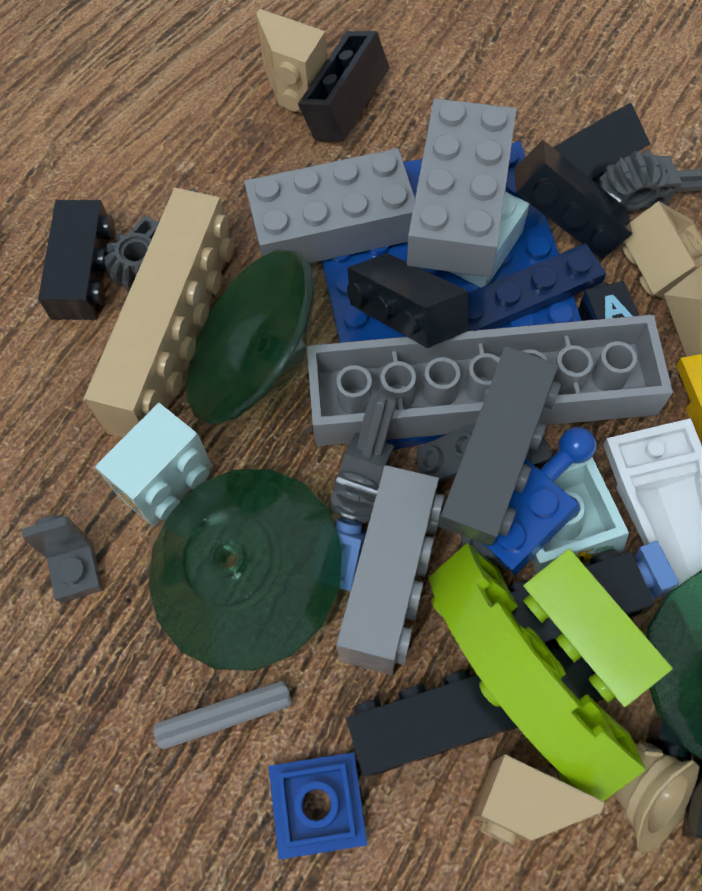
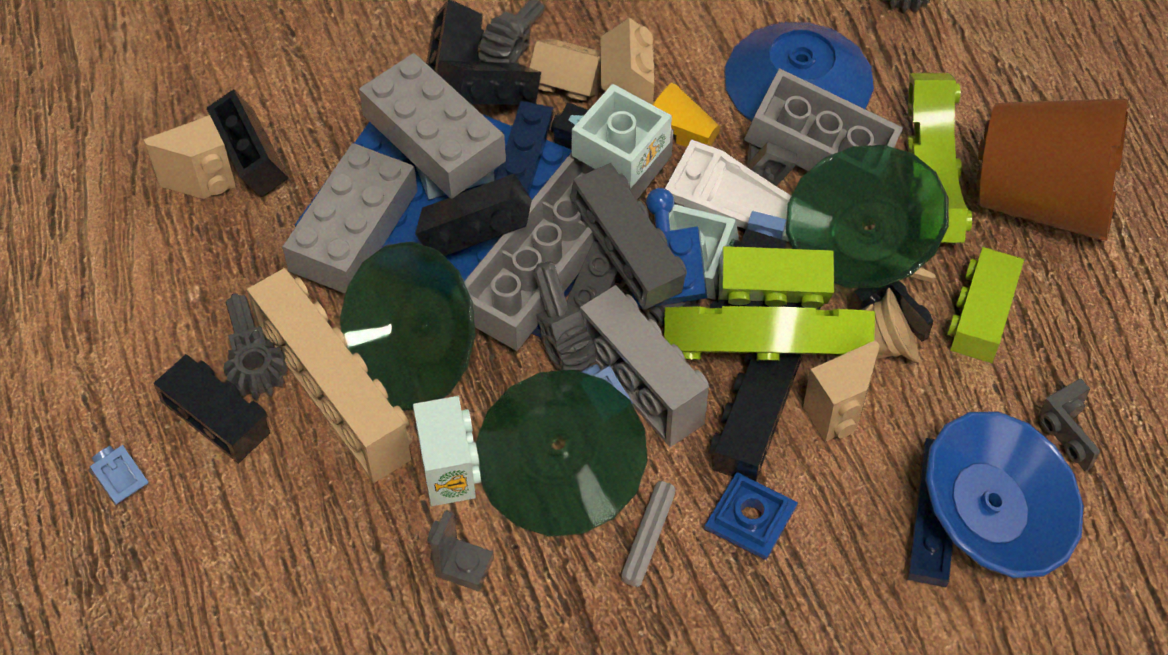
camera: 55 degrees left, 10 degrees down
(606, 349) = (621, 132): none -> light aqua brick

